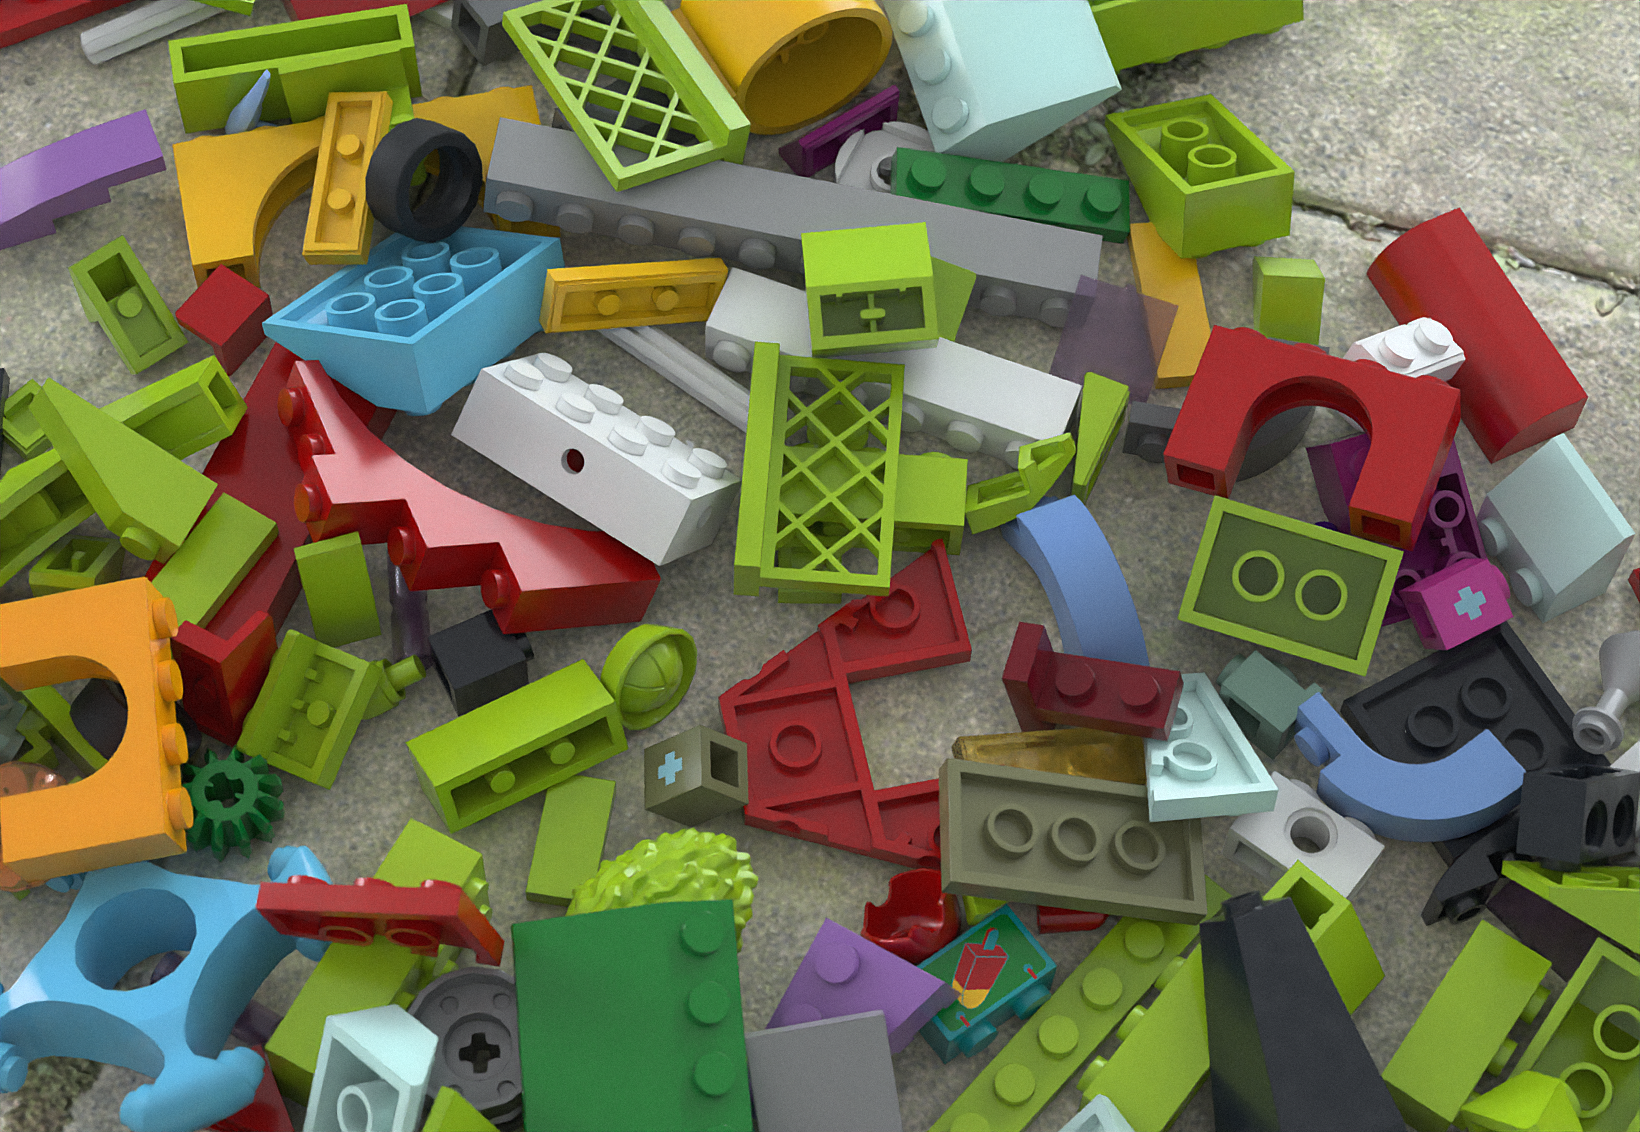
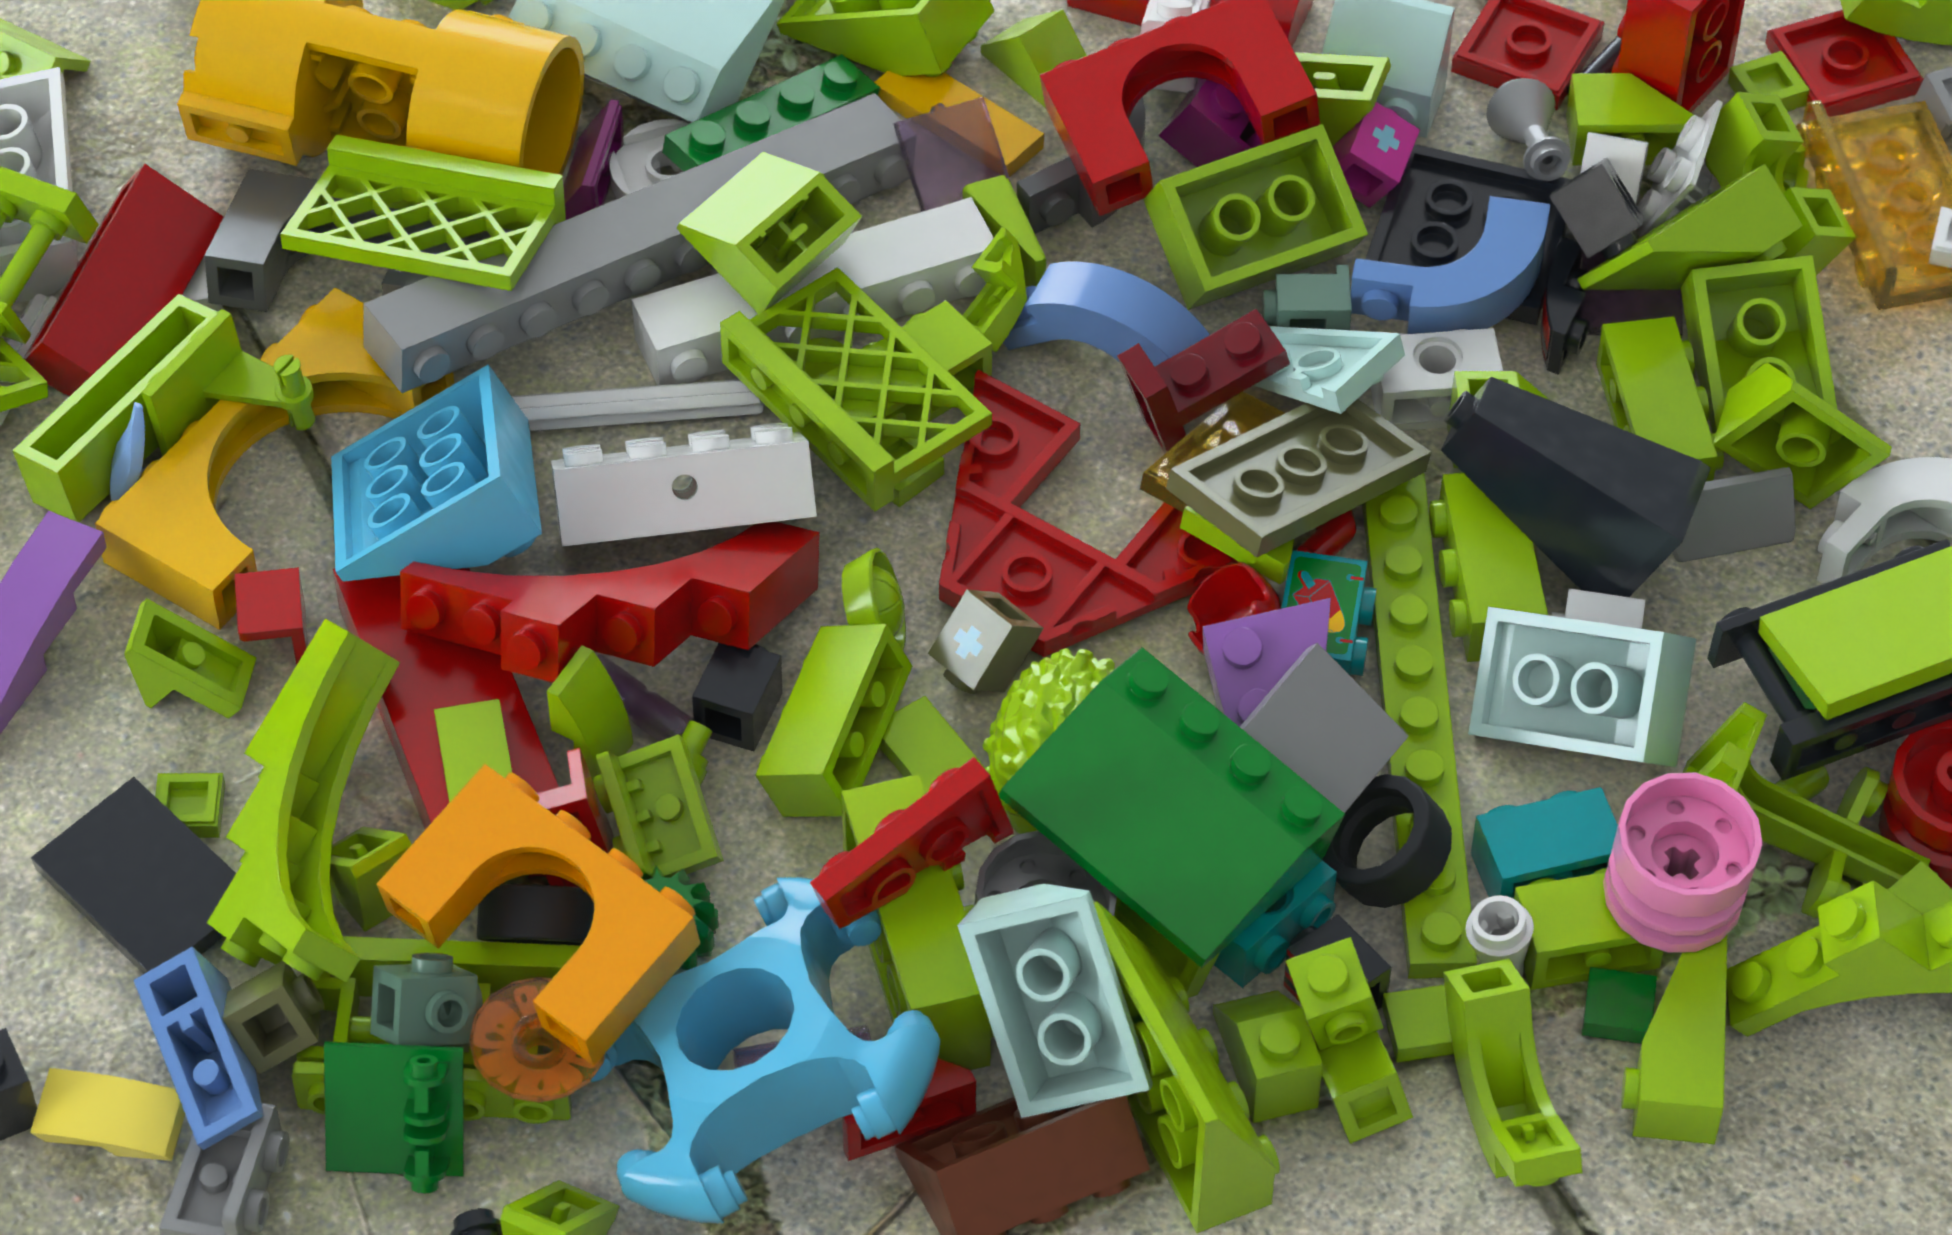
camera: 40 degrees left, 10 degrees down
(128, 480) = (357, 741): lime slope -> none
(339, 215) = (271, 443): yellow tile -> none
(393, 169) = (339, 397): black tyre -> none
(631, 294) = (581, 368): yellow tile -> none
(1465, 522) = (1344, 88): none -> lime slope

